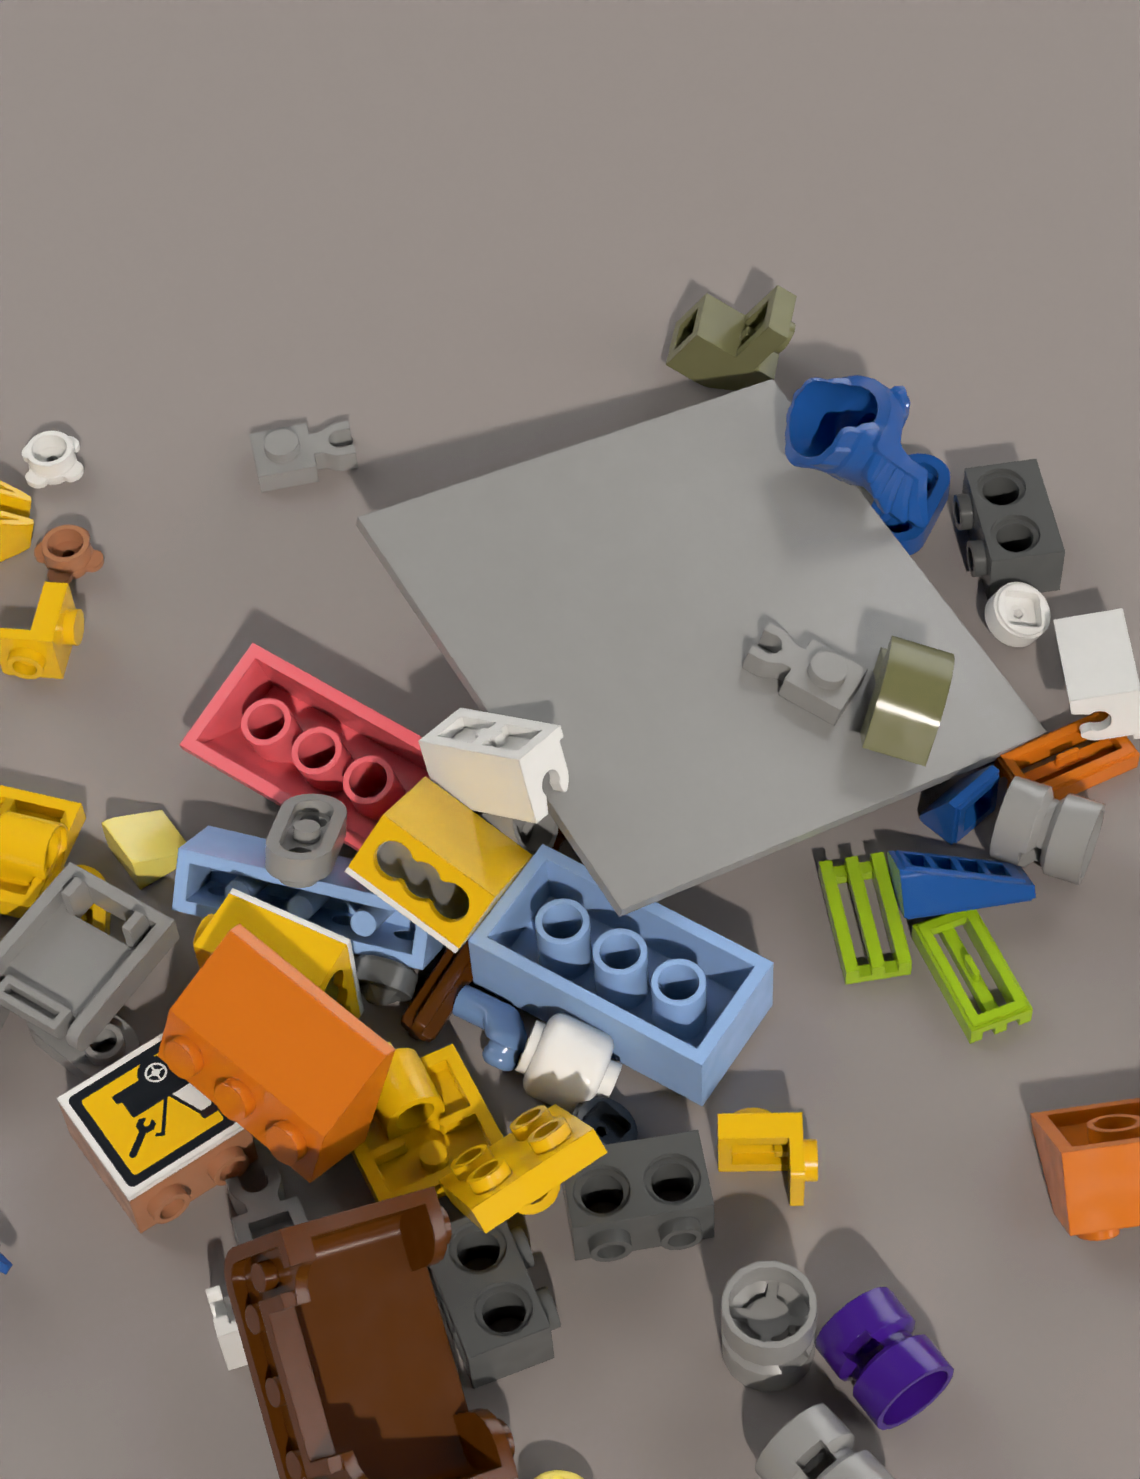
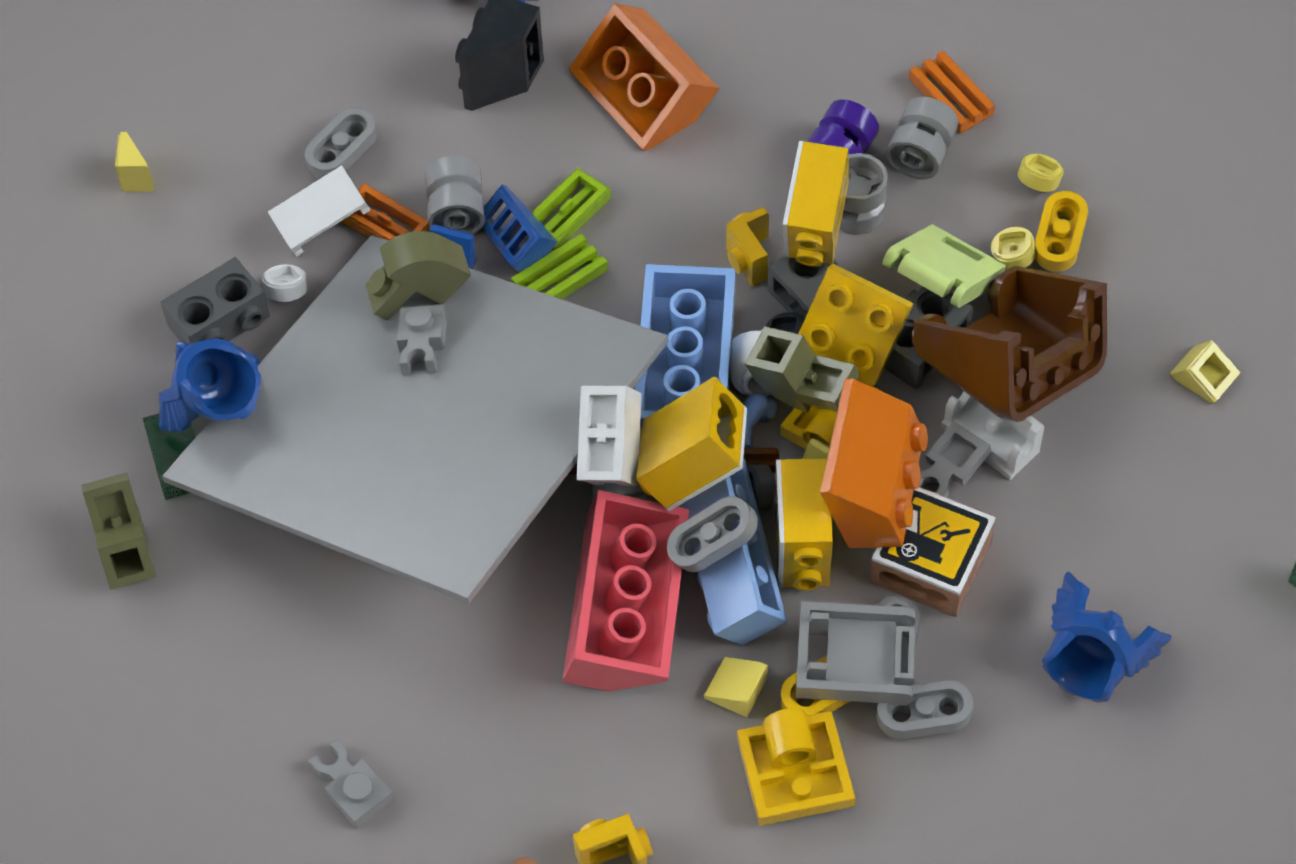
camera: 120 degrees left, 5 degrees up
(494, 1066) = (794, 374): none -> olive brick
(560, 1354) = (943, 261): none -> yellowish green container
(717, 1172) = (815, 203): none -> yellow piece

